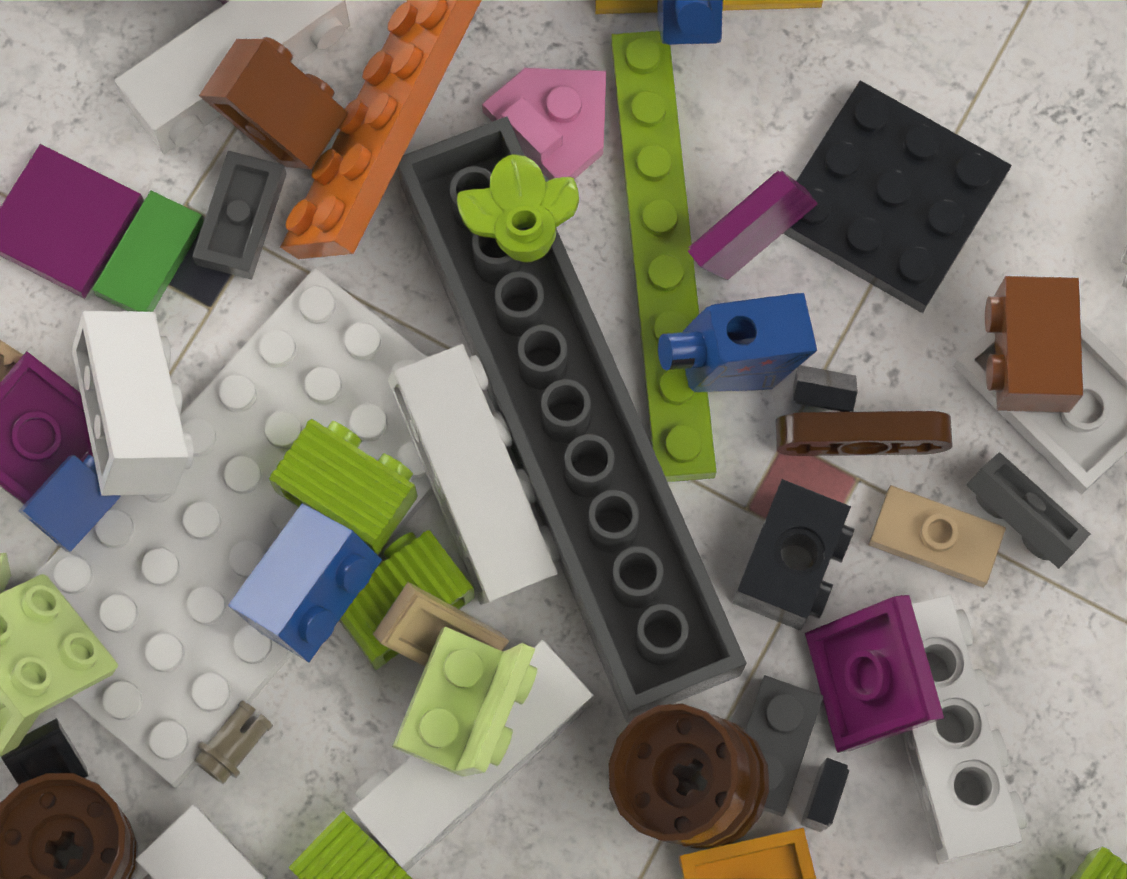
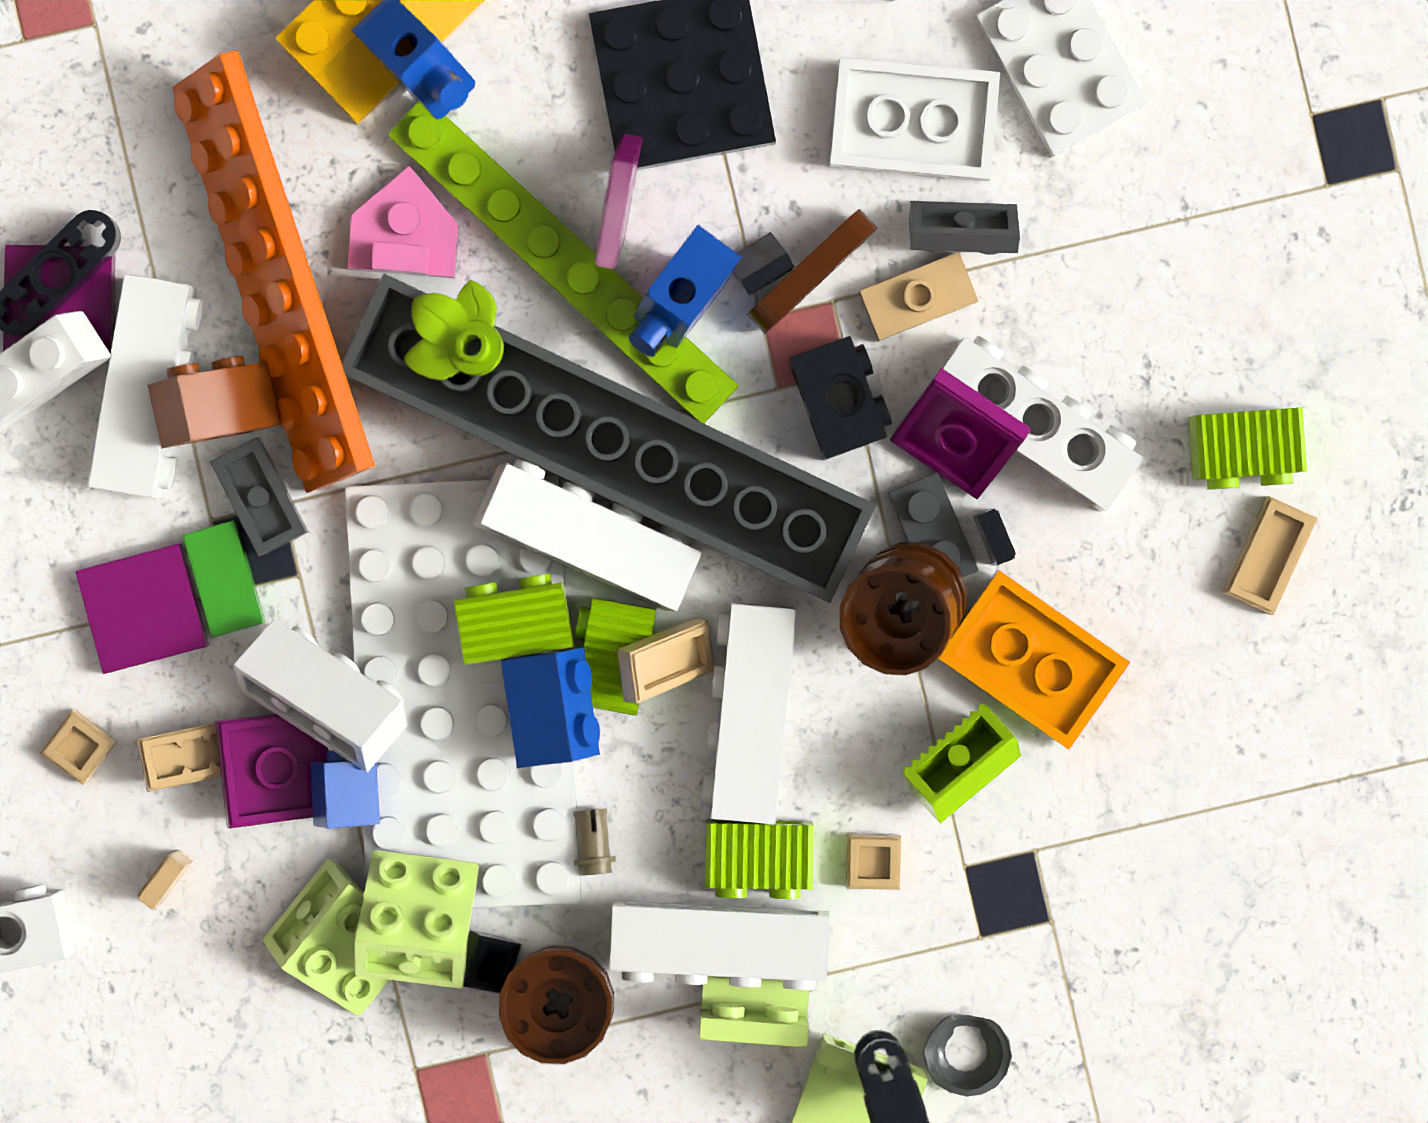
camera: 40 degrees left, 15 degrees up
(465, 703) = (727, 693): yellowish green bracket -> none
(1035, 344) = (875, 113): dark orange brick -> none

